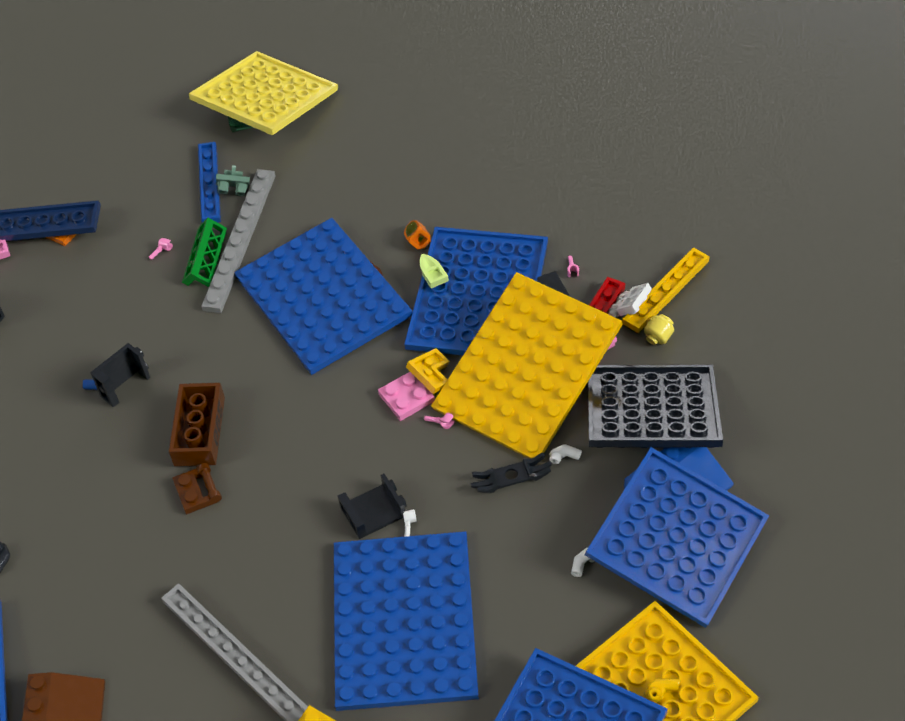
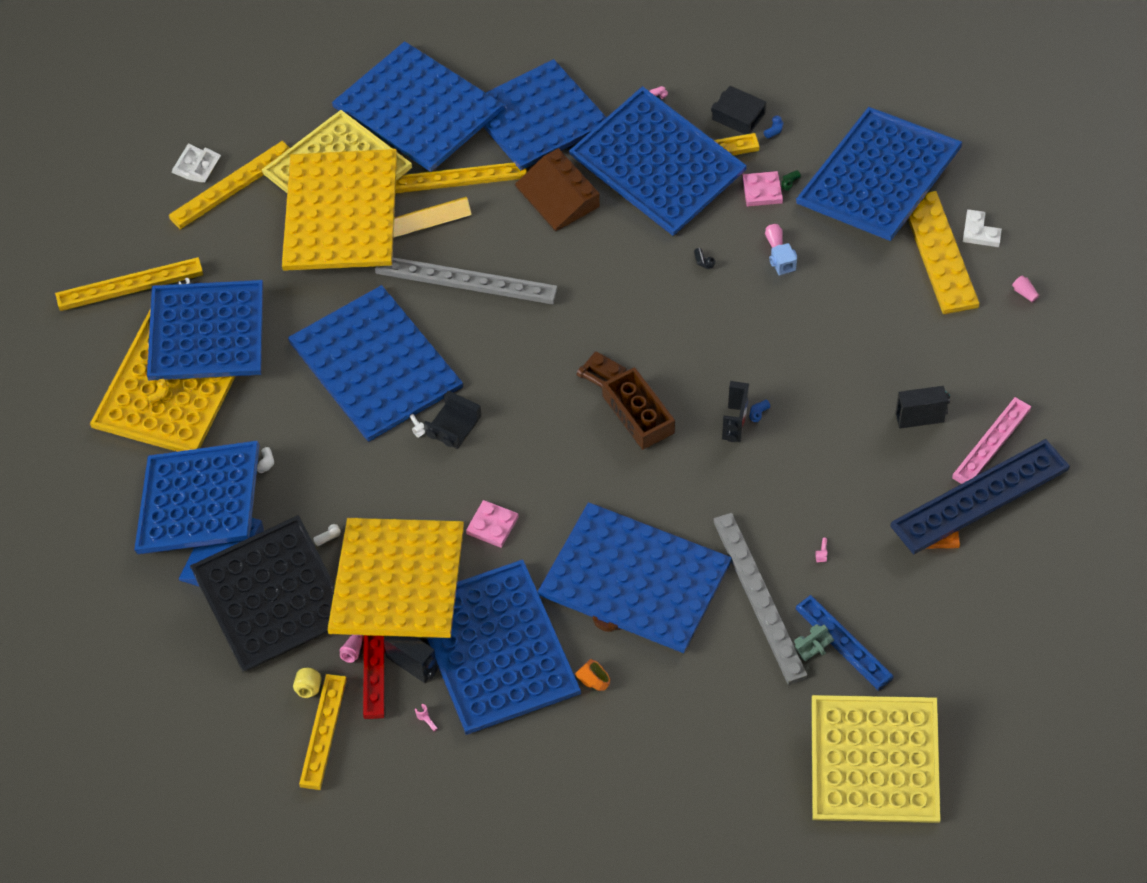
camera: 145 degrees right, 5 degrees up
(198, 252) = (781, 559): green fence -> none
(427, 369) = (487, 542): yellow plate -> none
(432, 271) = (543, 631): yellowish green plate -> none
(445, 421) = (443, 515): bright pink hand -> none
(526, 471) = (368, 488): black piece -> none
(630, 300) = (342, 691): white plate -> none

